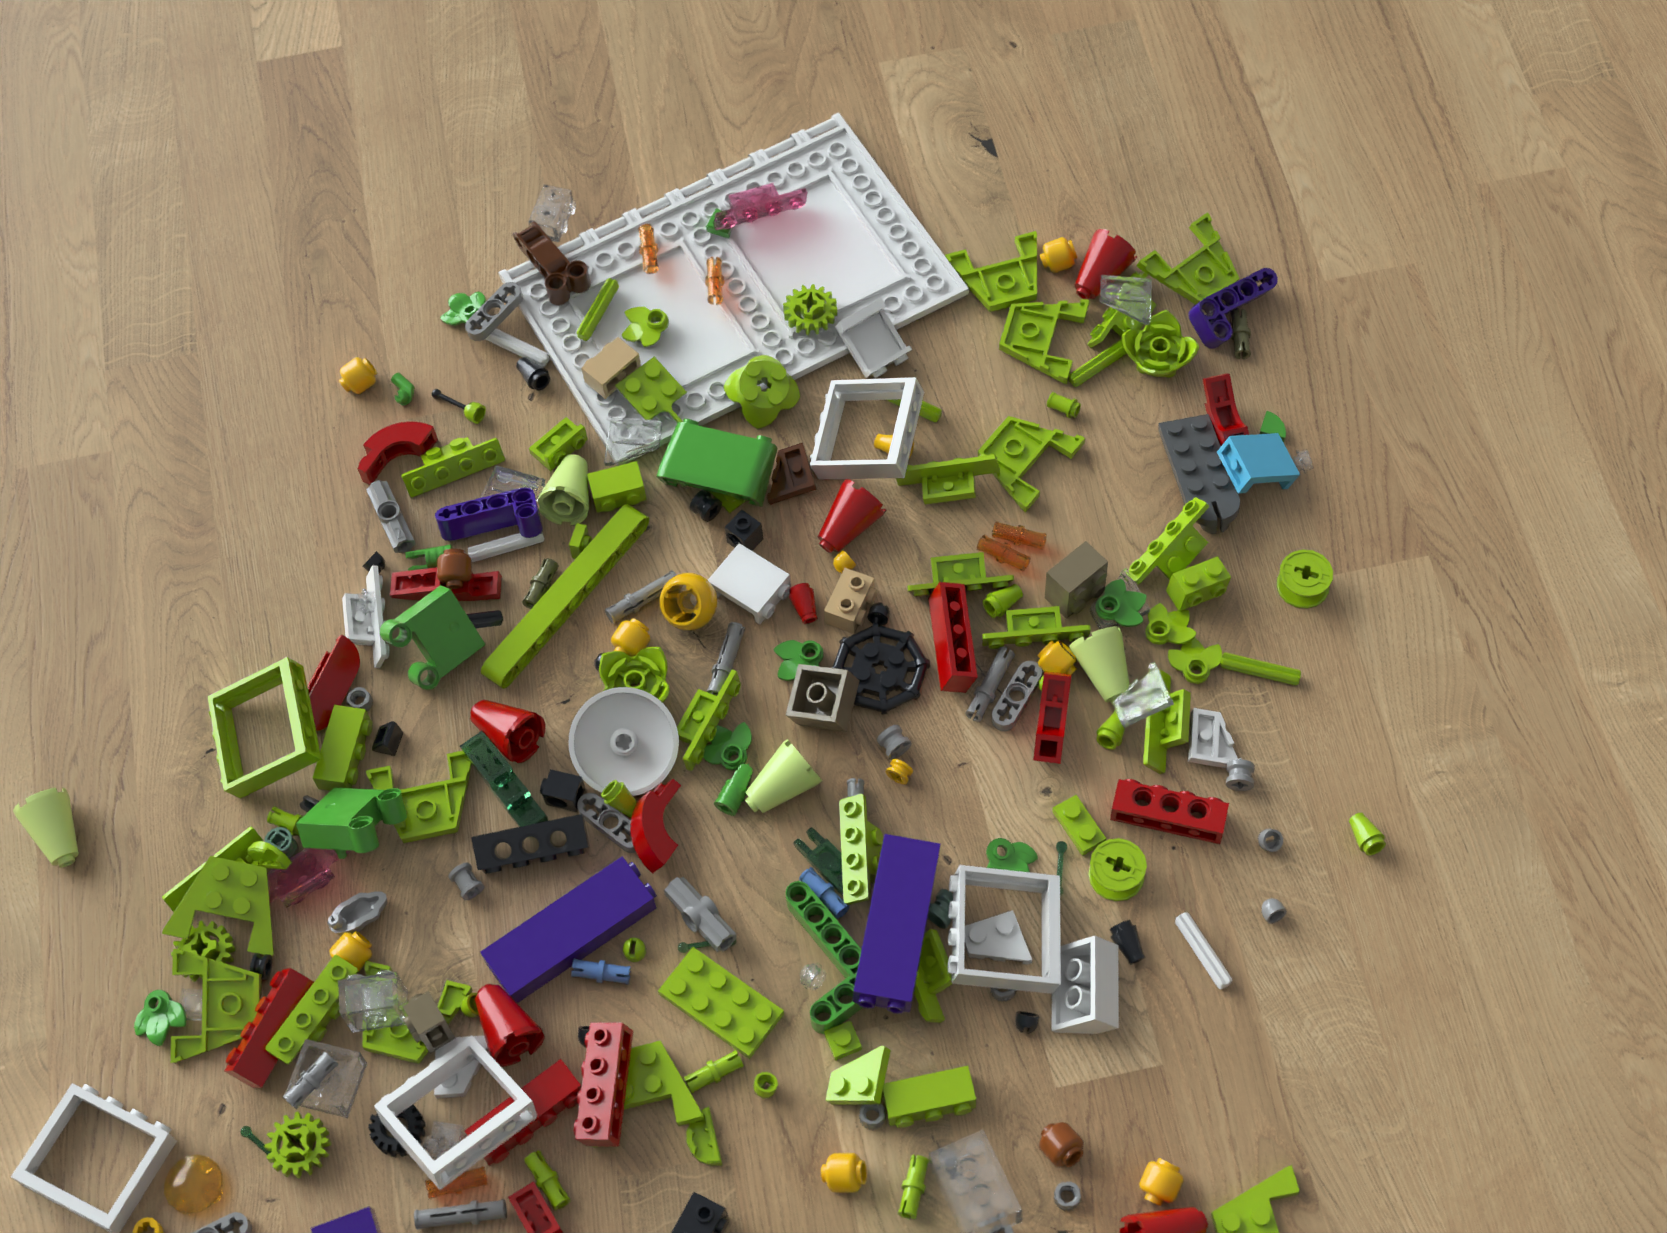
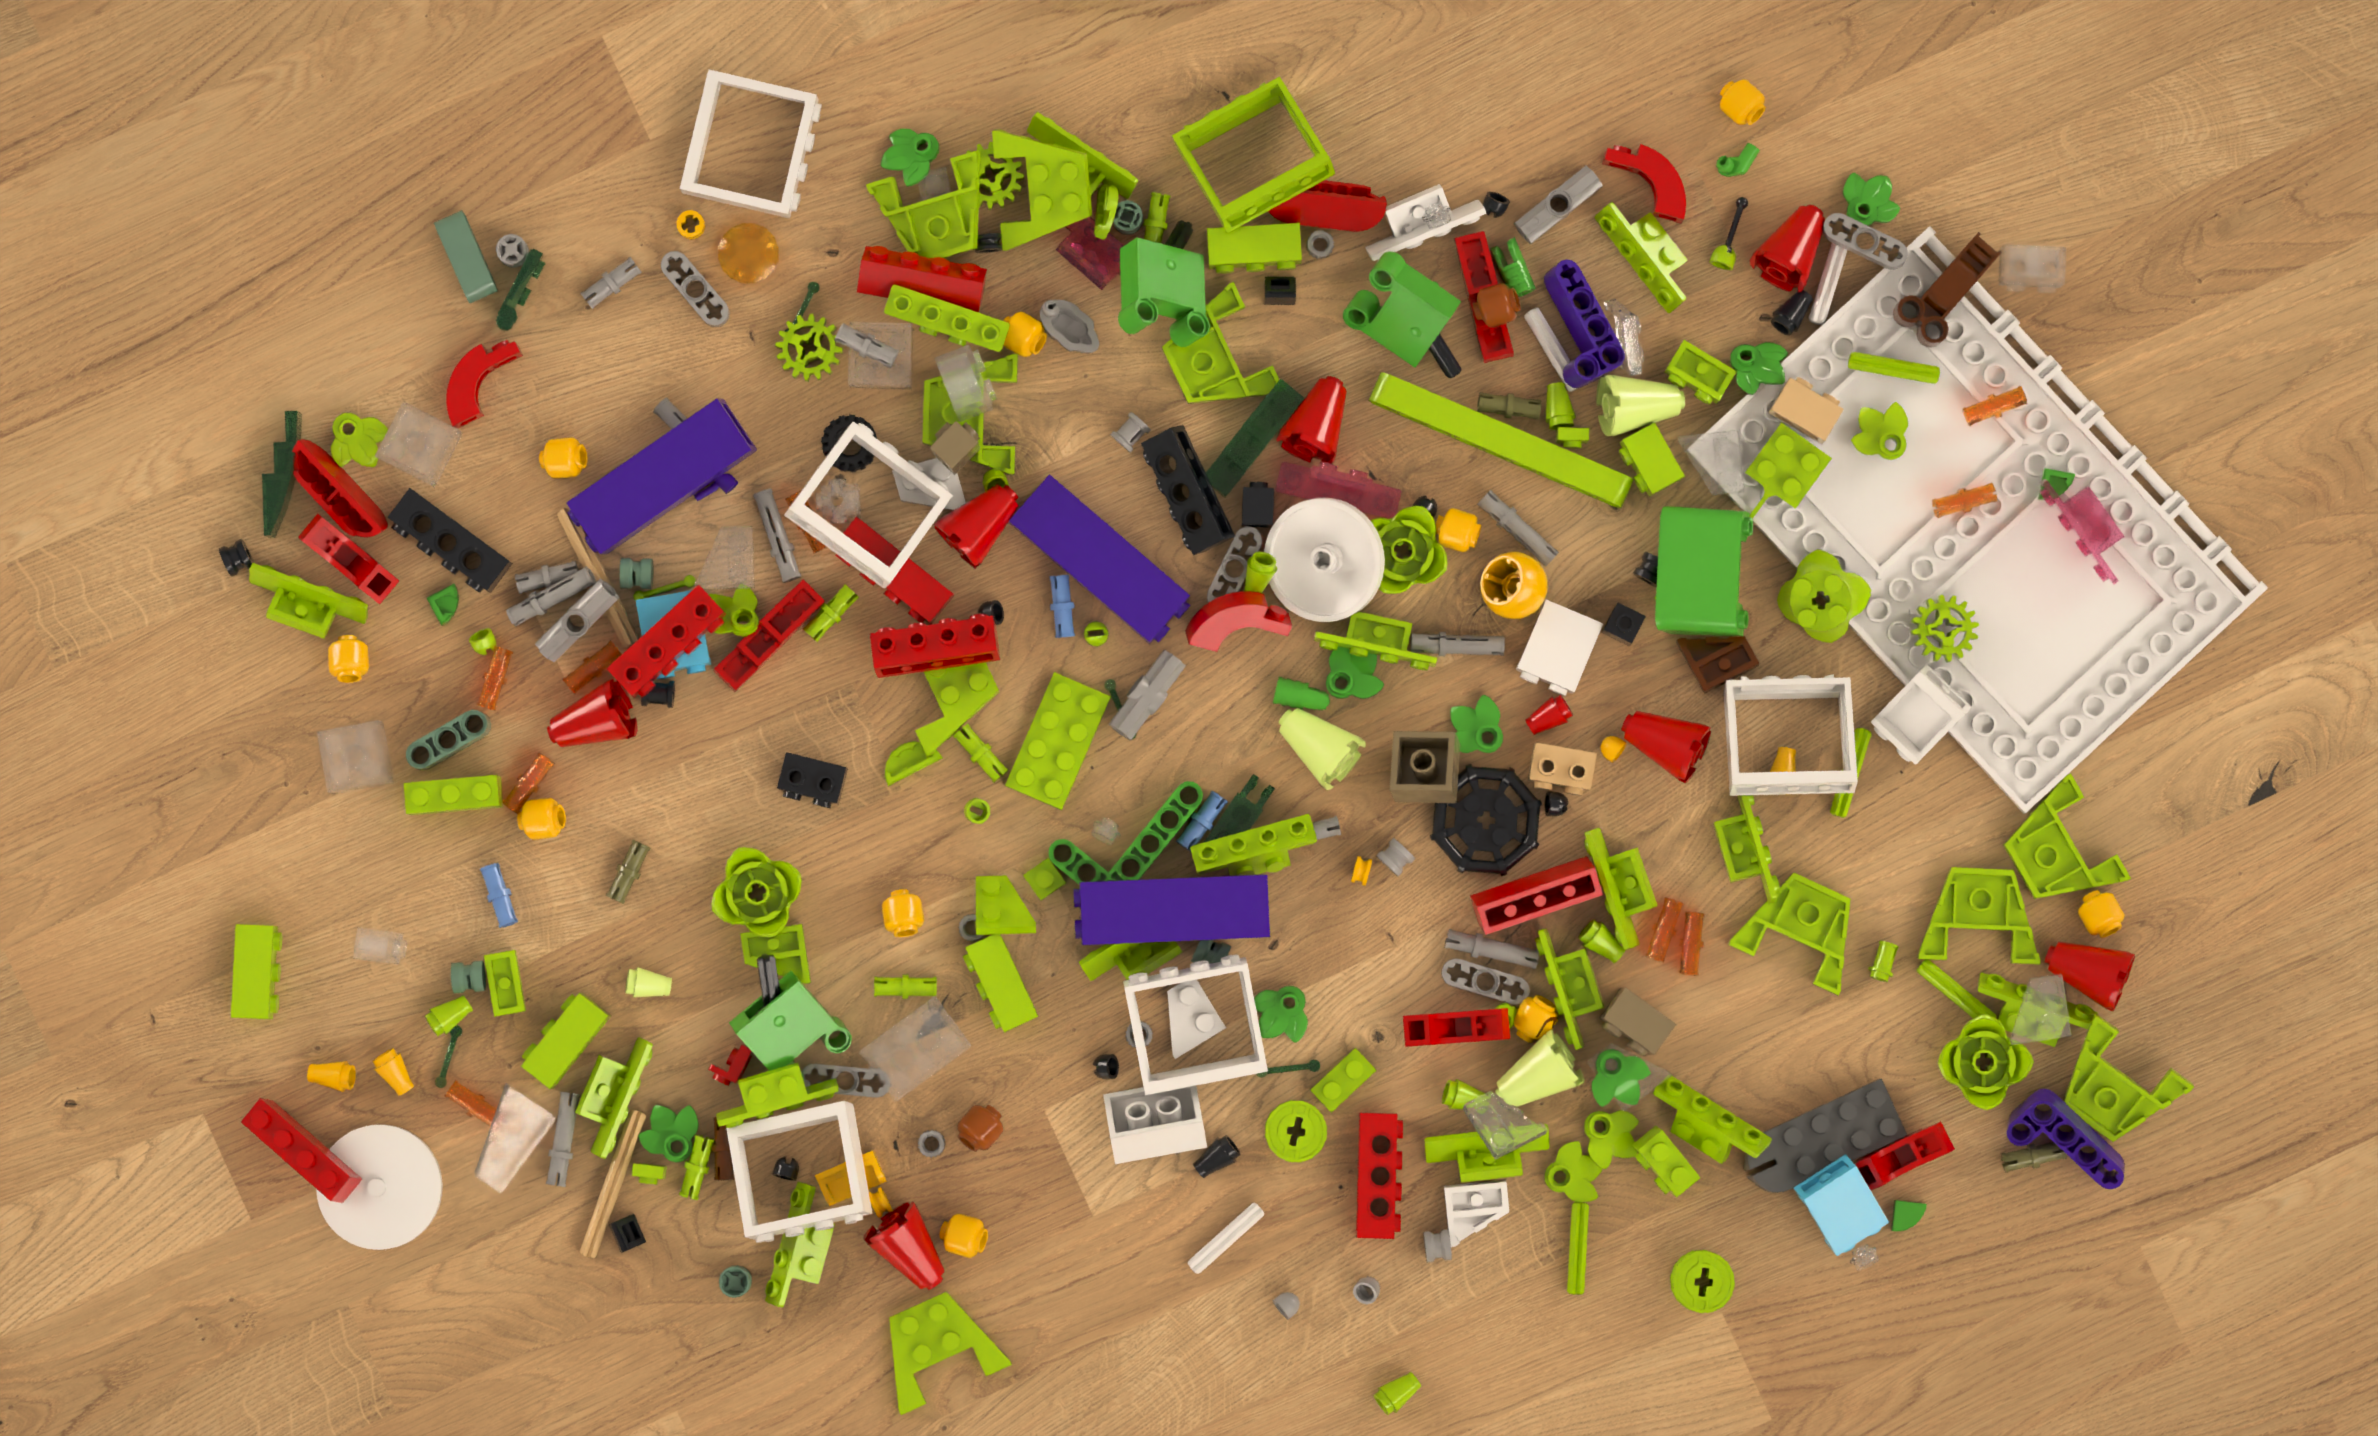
camera: 70 degrees right, 25 degrees up
(486, 363) = (1791, 249): none -> red cone
(553, 548) = (1559, 407): none -> lime cone
(557, 726) = (1330, 483): none -> clear pink bracket
(566, 401) = (1761, 368): none -> bright green plate

